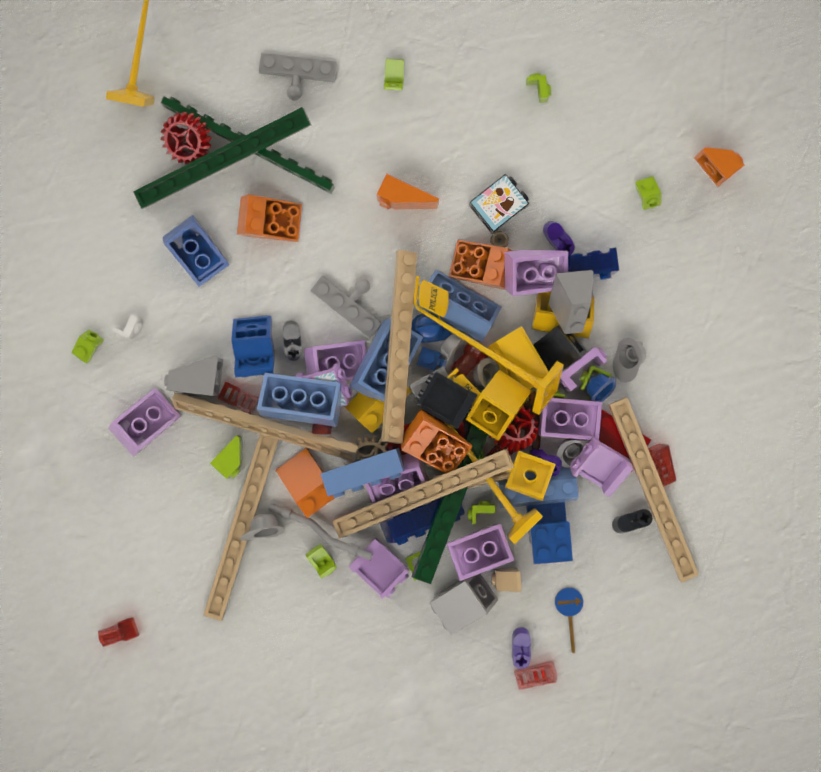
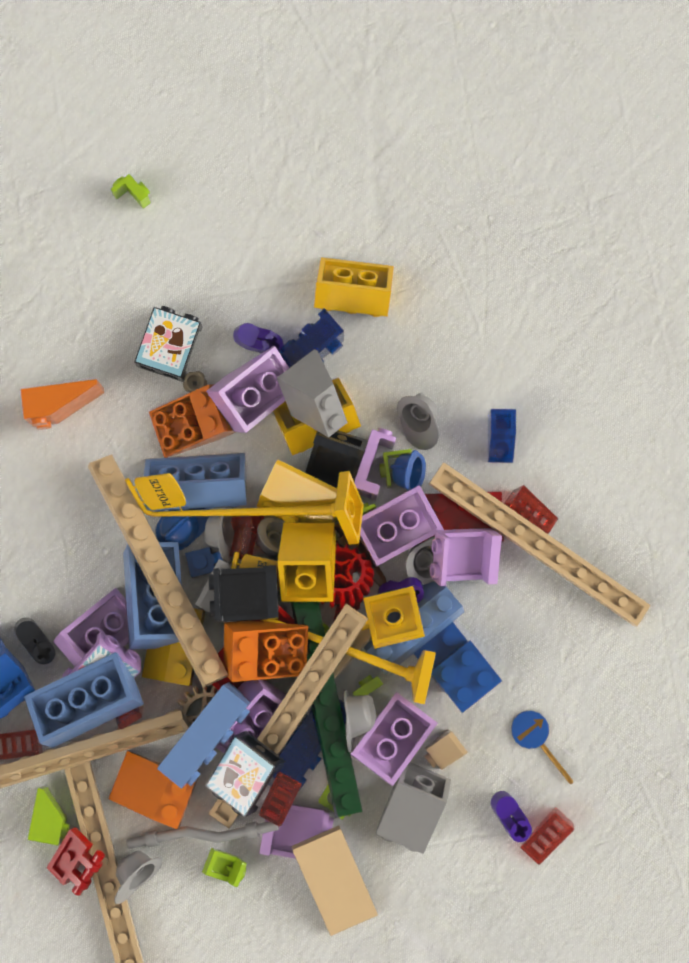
camera: 40 degrees left, 5 degrees down
(231, 490) = (69, 857): none -> red plate
(346, 305) = (71, 562): light grey plate -> none
(372, 512) = (244, 773): none -> panel
(383, 542) = (279, 800): none -> clear red slope
(384, 614) = (334, 880): none -> tan tile
(467, 524) = (359, 716): none -> light grey piece
(640, 518) = (547, 586): black piece -> none
(643, 244) = (353, 287): none -> yellow slope
(648, 192) = (324, 228): lime bracket -> none
(675, 403) = (501, 435): none -> clear blue slope
(719, 163) = (377, 149): orange slope -> none

